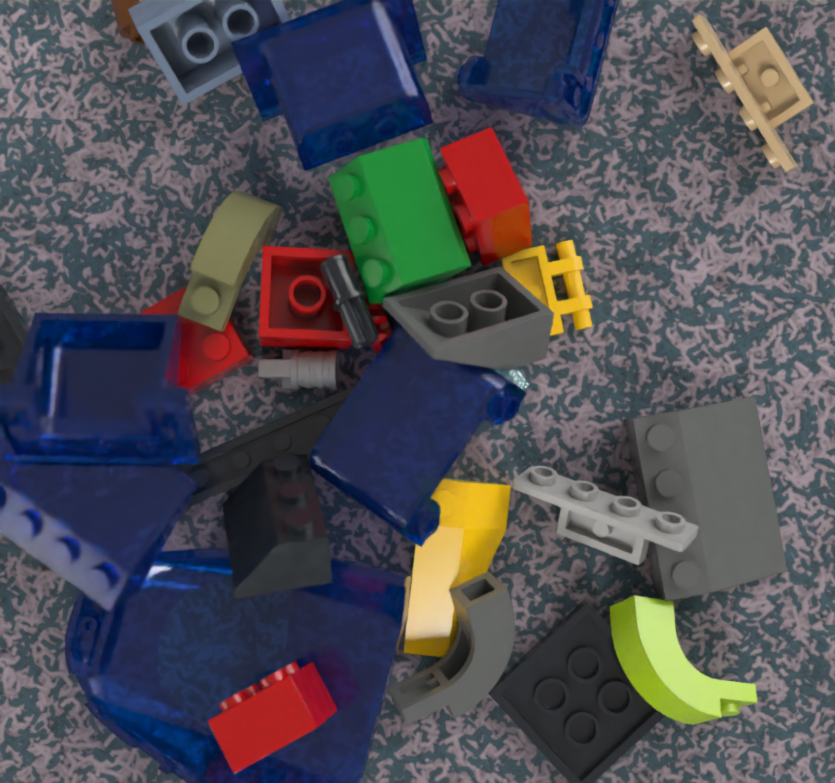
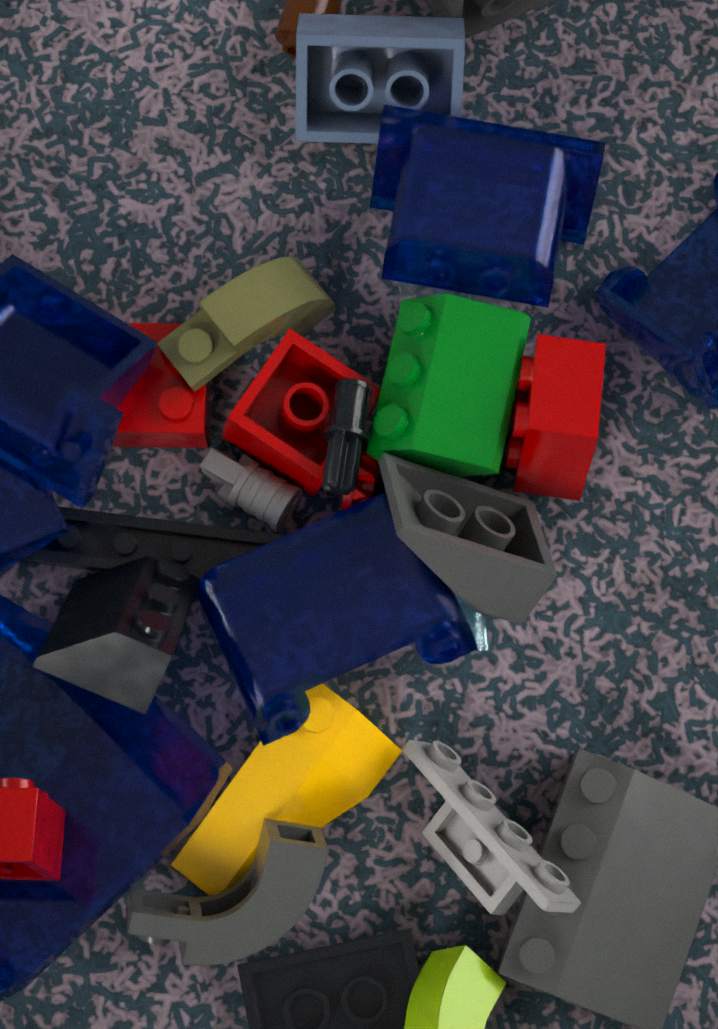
camera: 30 degrees right, 10 degrees down
(535, 273) = (567, 534): yellow plate -> none

